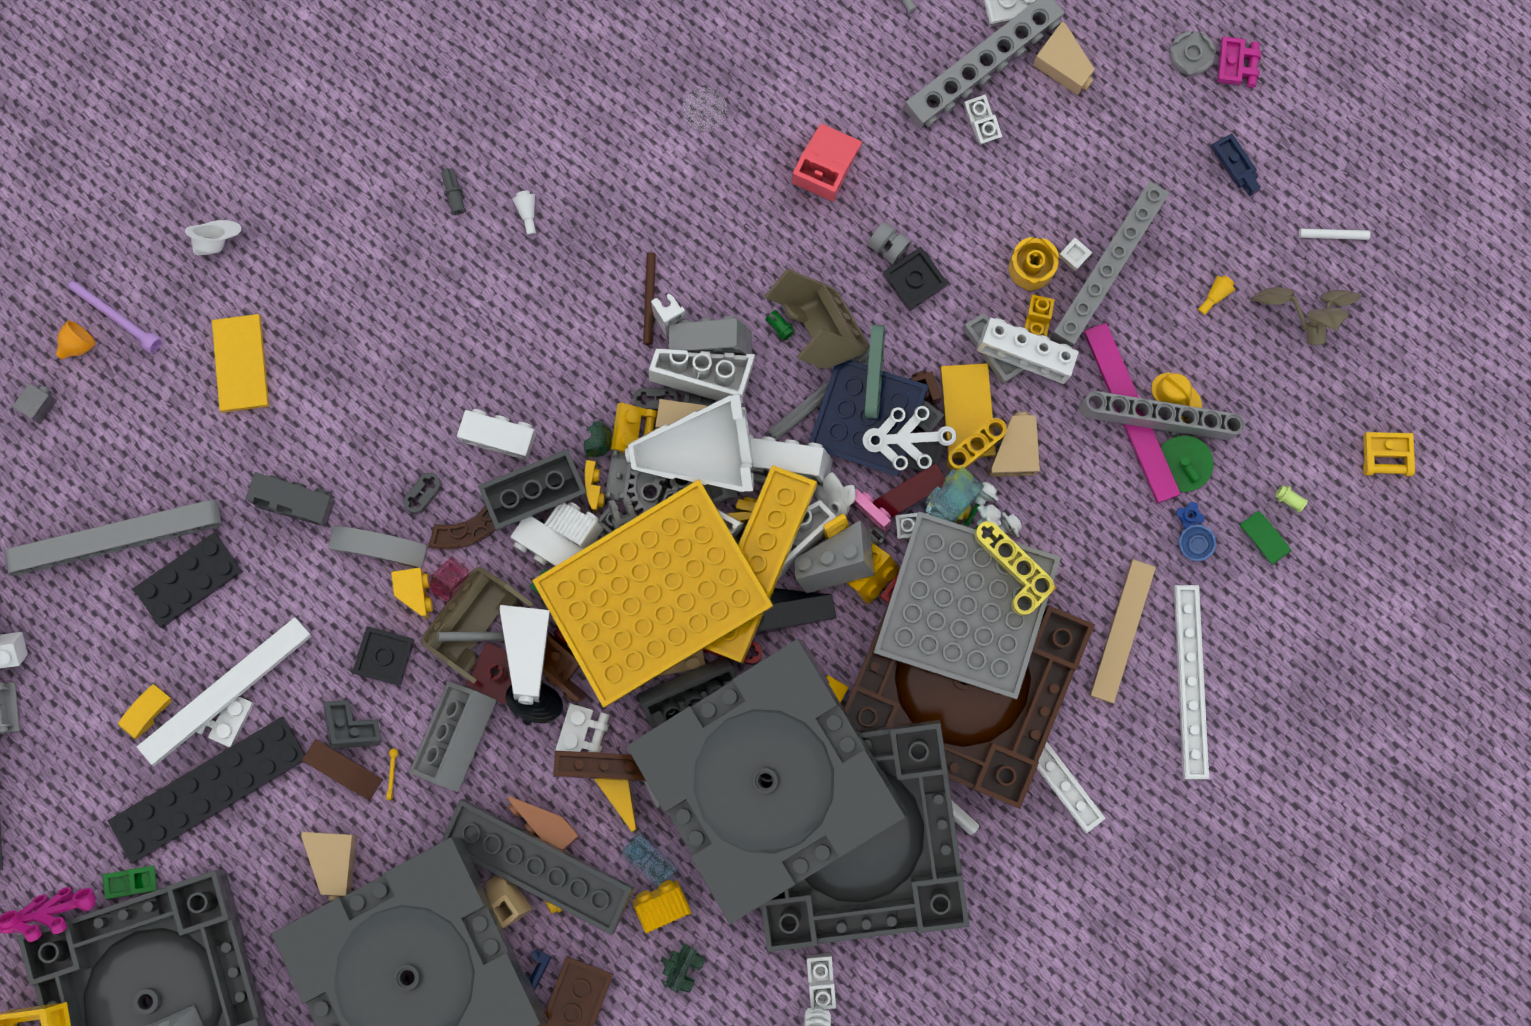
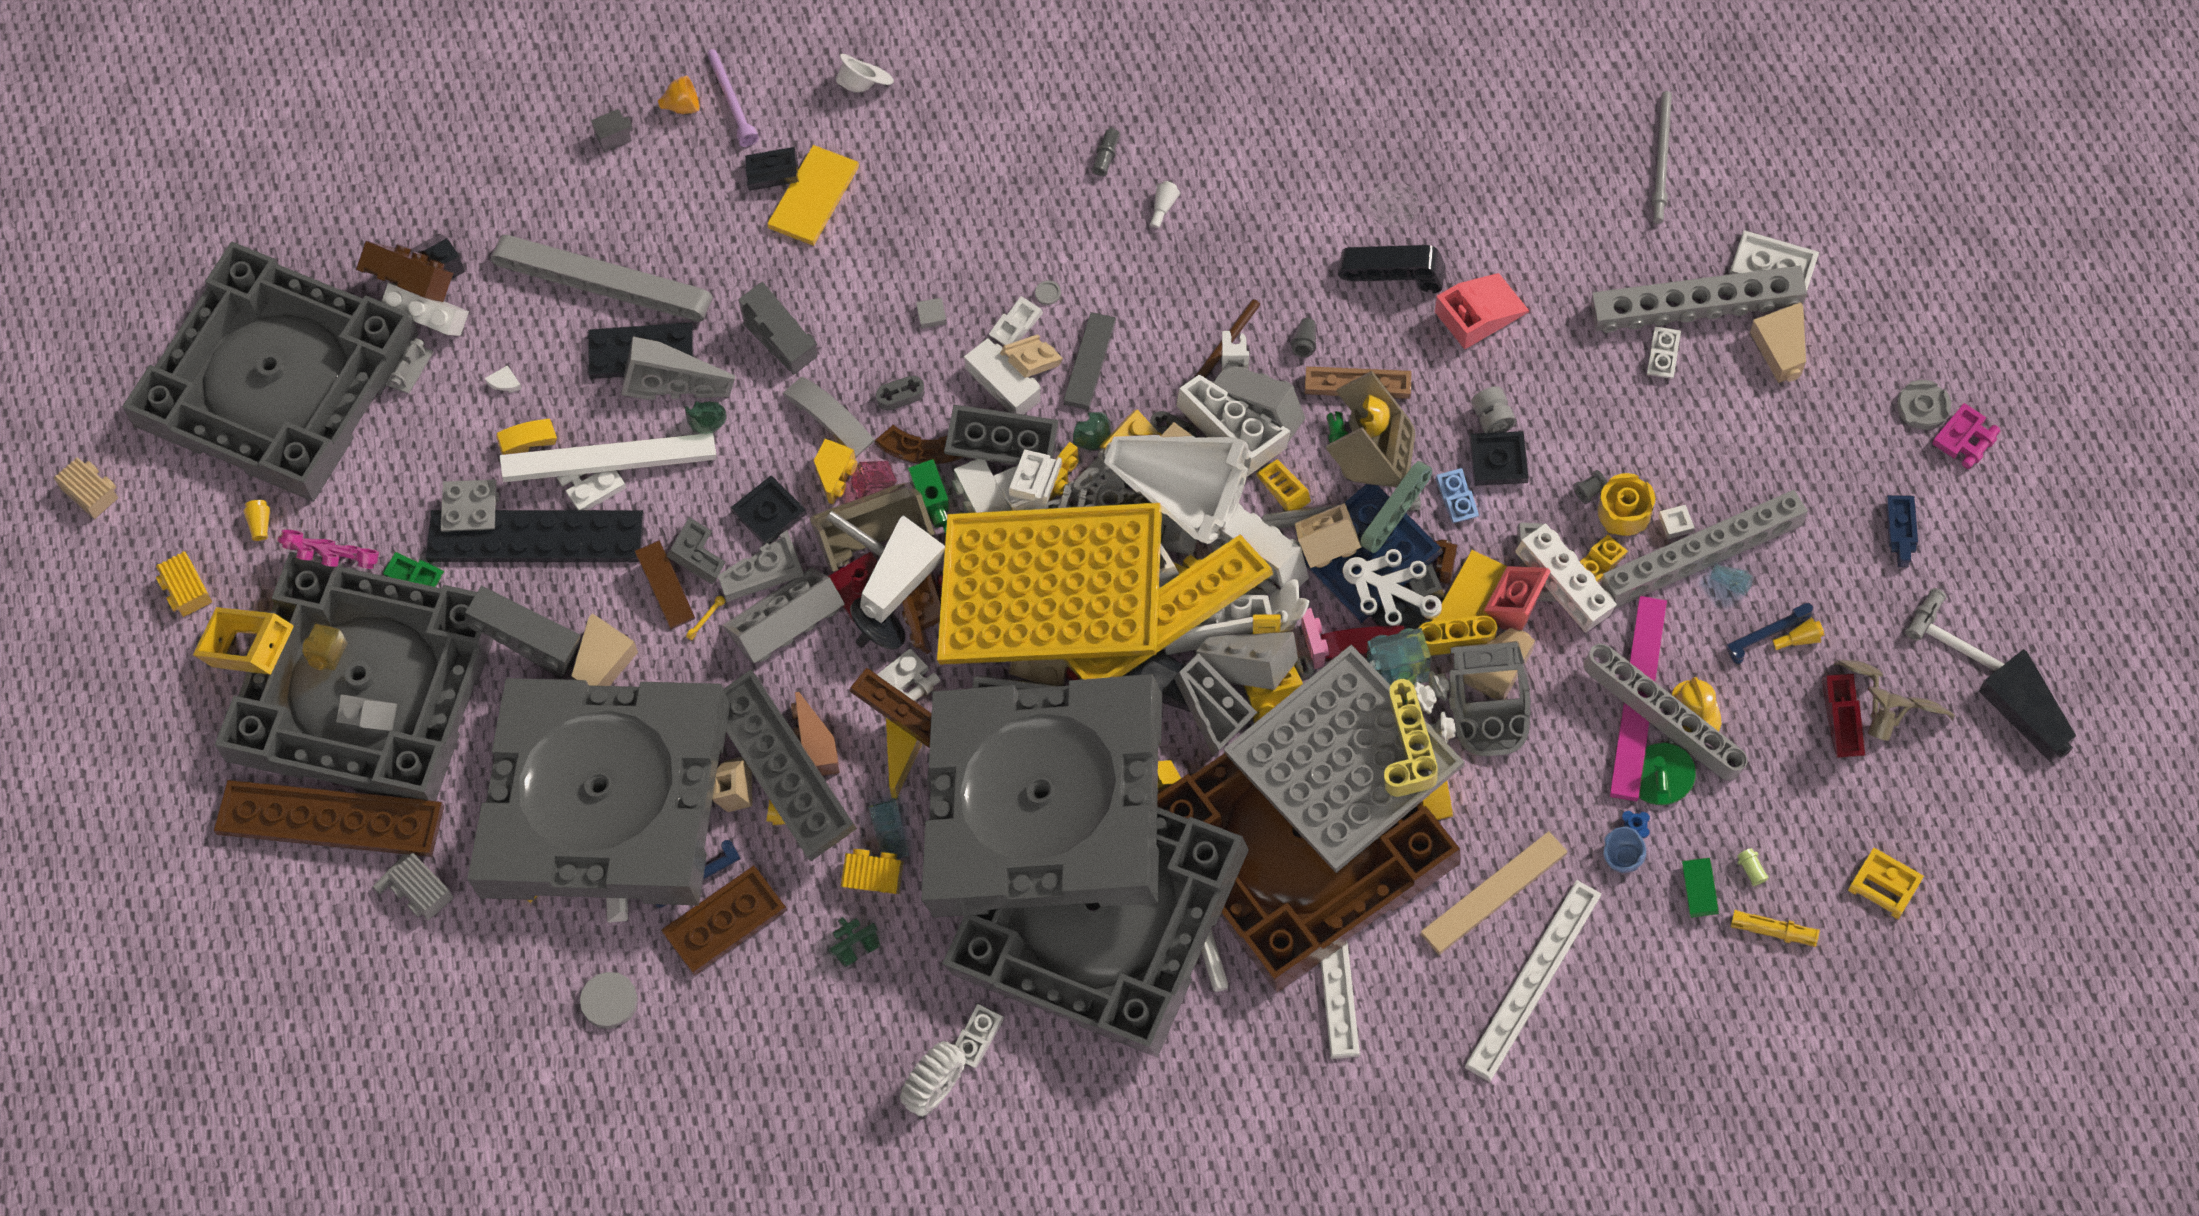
camera: 40 degrees right, 15 degrees down
(91, 672) = (503, 380): none -> white tile
(102, 999) = (324, 647): none -> clear yellow brick
(137, 799) = (469, 505): none -> light grey hinge
(191, 361) = (771, 168): none -> black plate
(216, 590) = (662, 370): none -> light grey wedge
(257, 886) = (523, 631): none -> dark grey wedge
(280, 607) = (706, 417): none -> clear green hair
(402, 410) = (931, 313): none -> light grey tile
(413, 706) = (768, 568): none -> light grey wing
(475, 380) = (1016, 323): none -> white slope
(483, 338) = (1048, 292): none -> light grey piece
(497, 560) = (927, 481): none -> green torso
(508, 403) = (1031, 356): none -> tan plate
(554, 378) = (1089, 361): none -> dark grey tile
(582, 510) = (1035, 476): none -> white plate
(708, 263) = (1304, 340): none -> dark grey cone
(738, 163) = (1394, 264): none -> black beam
(759, 283) = (1328, 379): none -> medium nougat plate
(787, 402) = (1293, 499): none -> yellow slope
(808, 303) = (1377, 416): none -> yellow hair
(832, 611) = (1213, 702): none -> light grey wedge
(833, 423) = (1327, 536): none -> tan slope
(903, 329) = (1456, 496): none -> light blue slope
(996, 262) = (1590, 487): none -> dark grey bush
(1003, 387) = (1516, 596): none -> coral slope
(1043, 500) = (1493, 725): none -> dark grey slope
(1143, 277) = (1734, 579): none -> clear light blue cone
(1176, 331) = (1799, 615): none -> dark blue hinge
(1284, 339) = (1843, 715): none -> dark red slope
(1292, 223) = (1925, 614): none -> light grey pin
(1344, 533) = (1770, 927): none -> yellow pin
(1407, 254) = (2029, 706): none -> black slope

